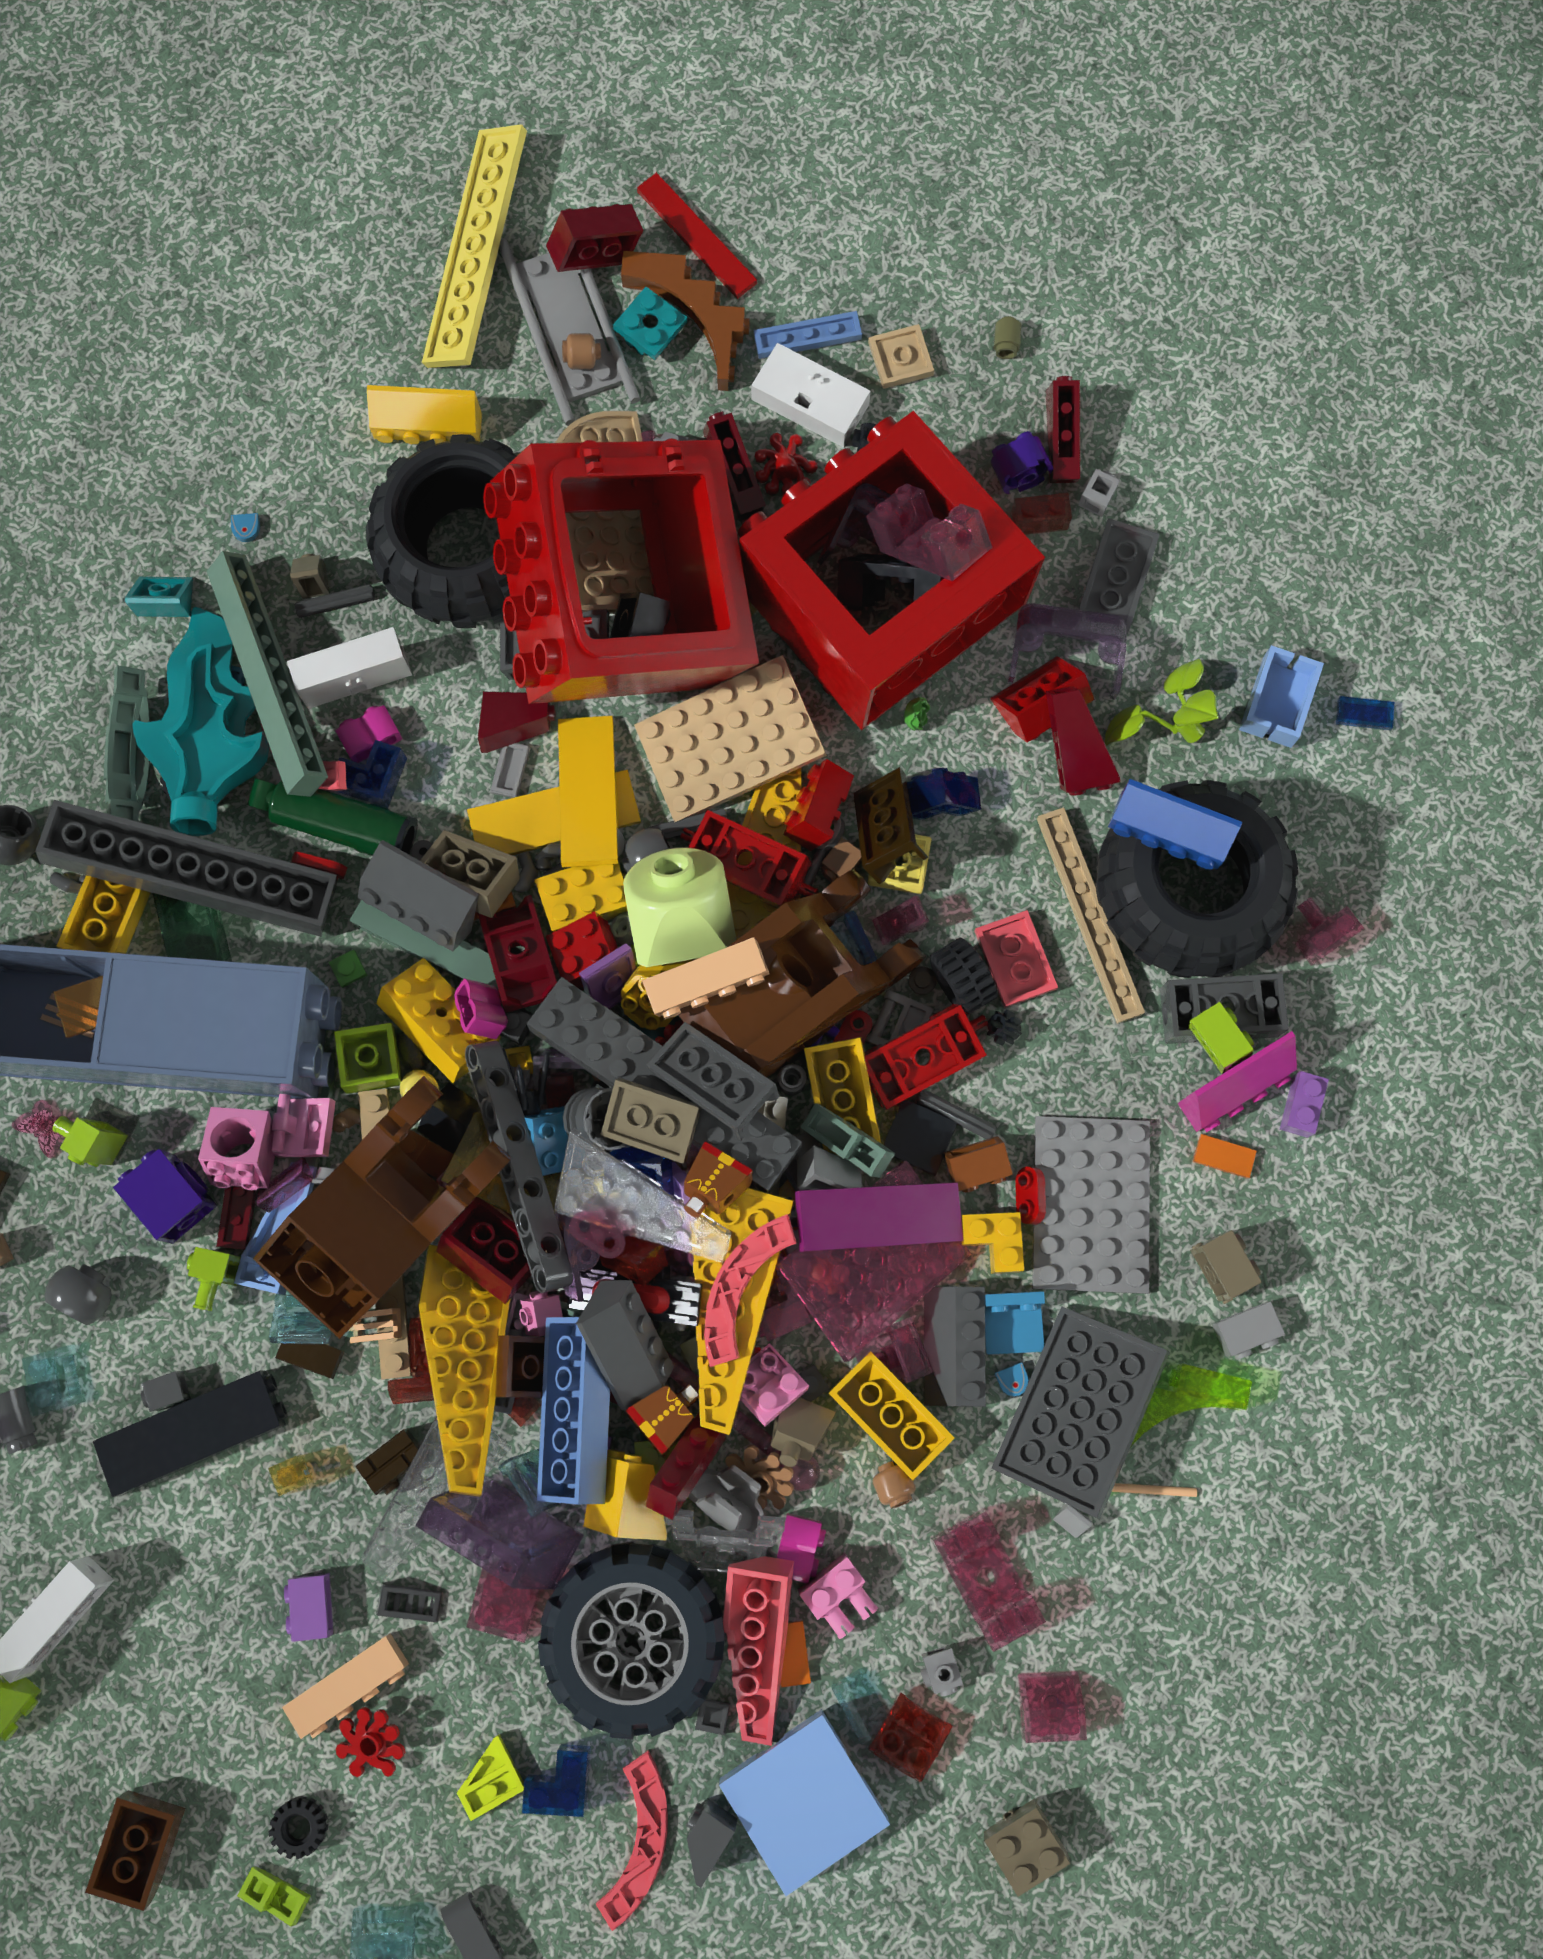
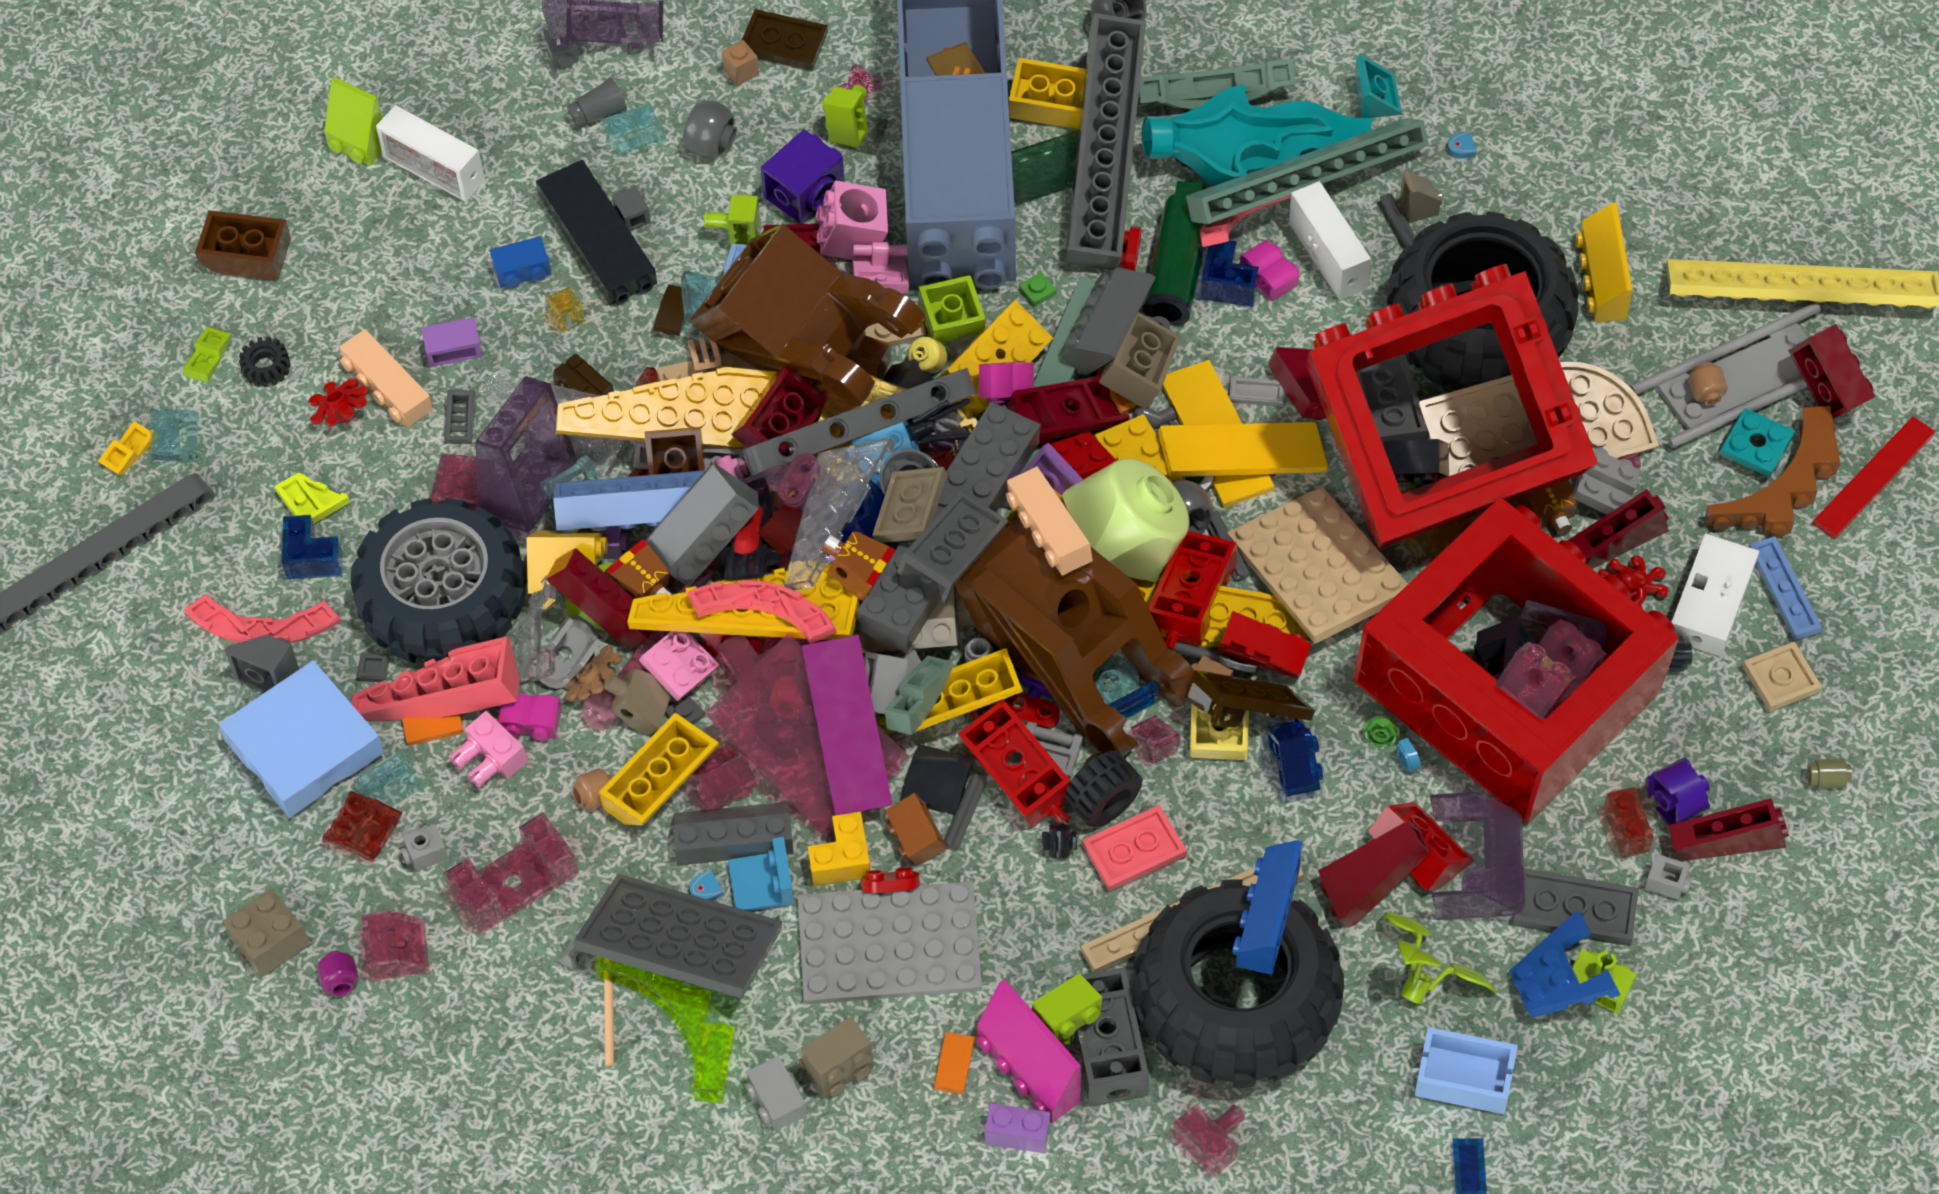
camera: 85 degrees right, 20 degrees down
(216, 1522) = (520, 262): none -> blue brick
(948, 694) = (1408, 756): none -> dark azure tile
(1078, 1770) = (337, 973): none -> magenta head
(1196, 610) = (1548, 979): none -> blue wing
(1197, 567) = (1591, 964): none -> lime brick

